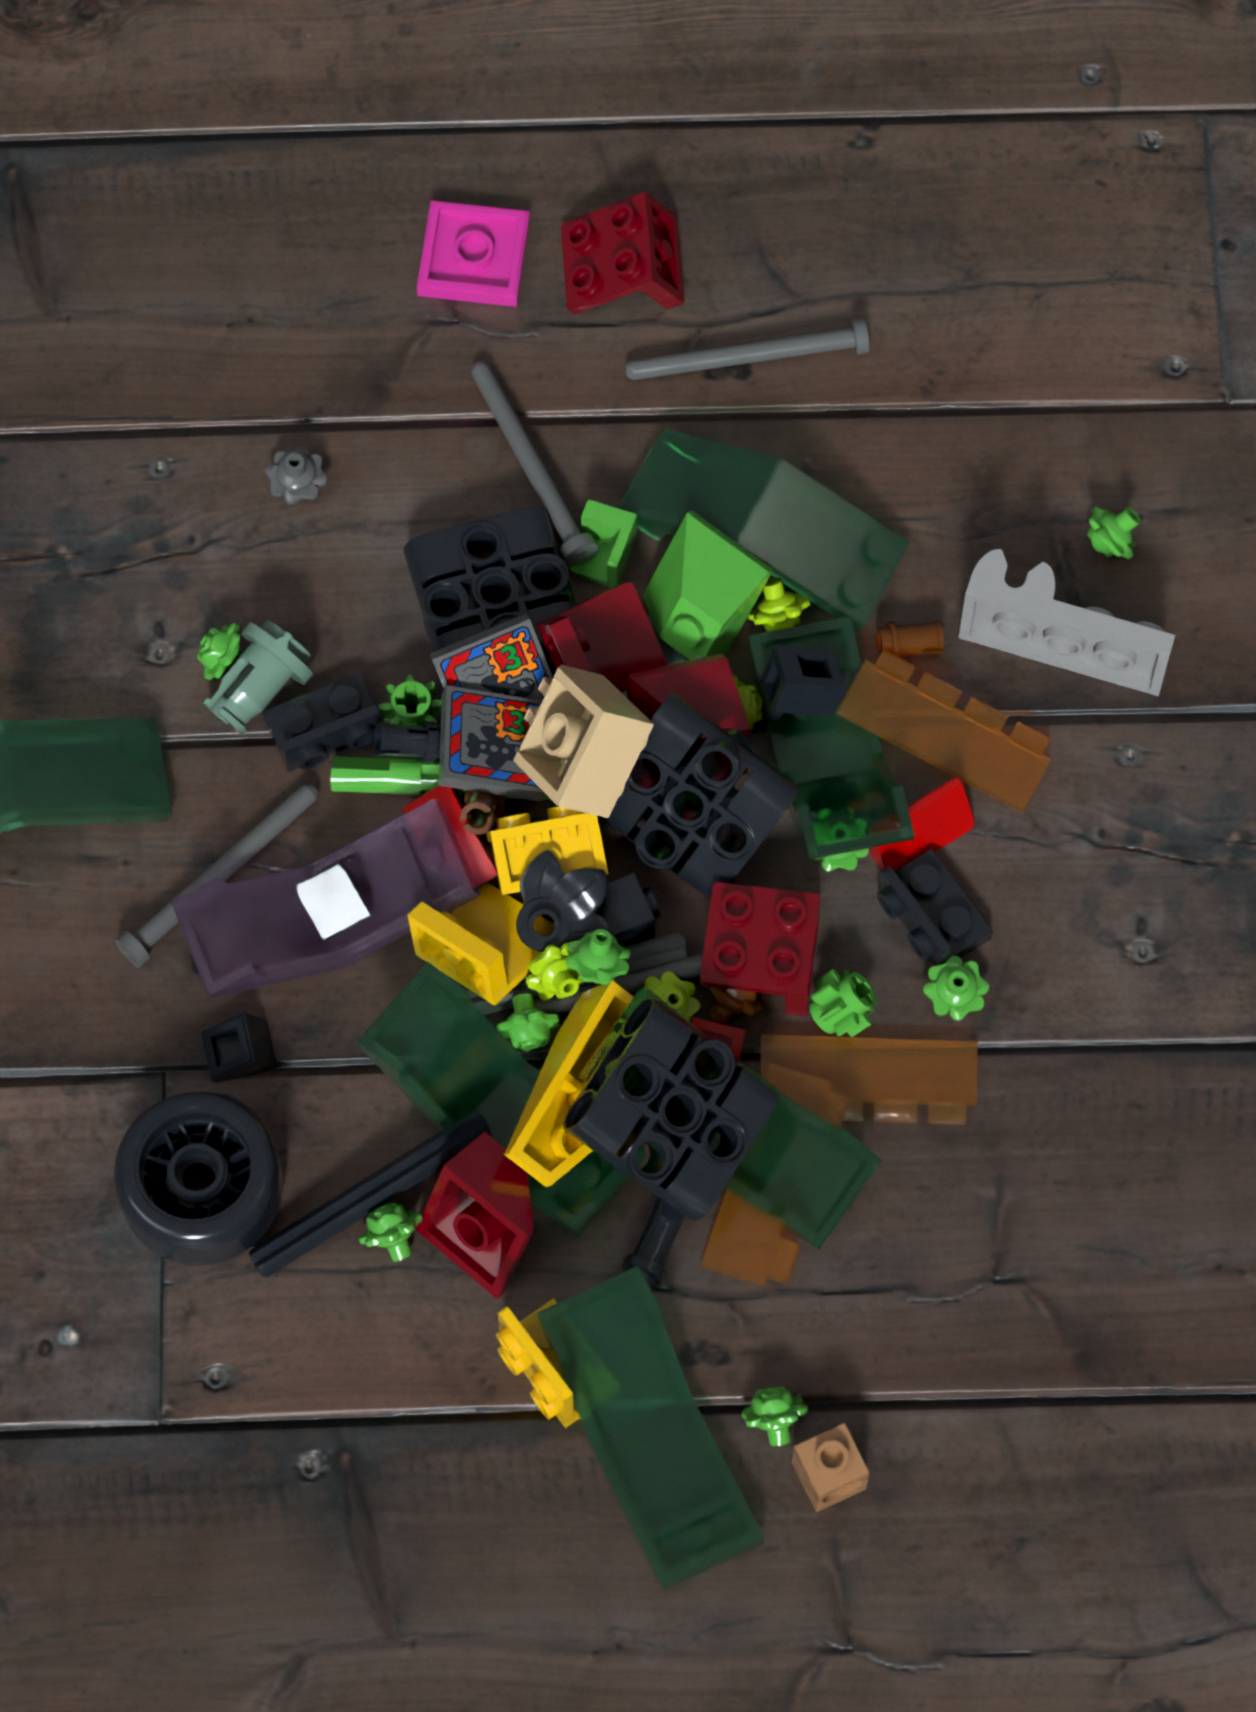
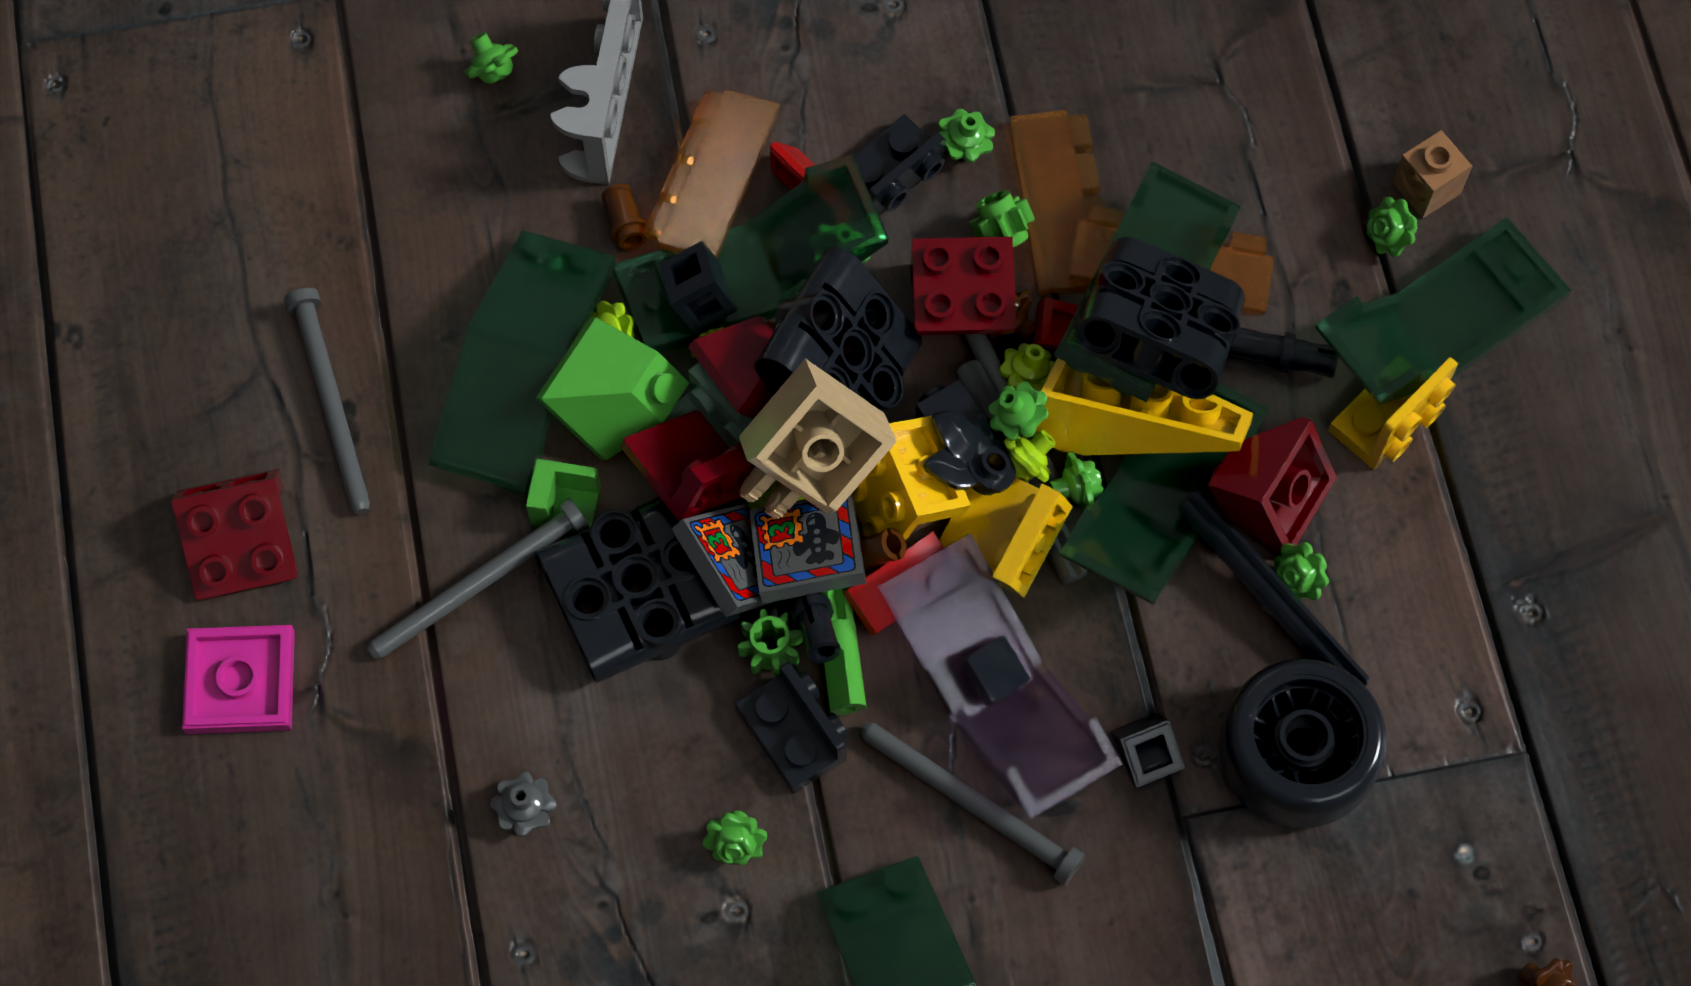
camera: 100 degrees left, 0 degrees up
(258, 674) = (740, 780): sand green piece -> none

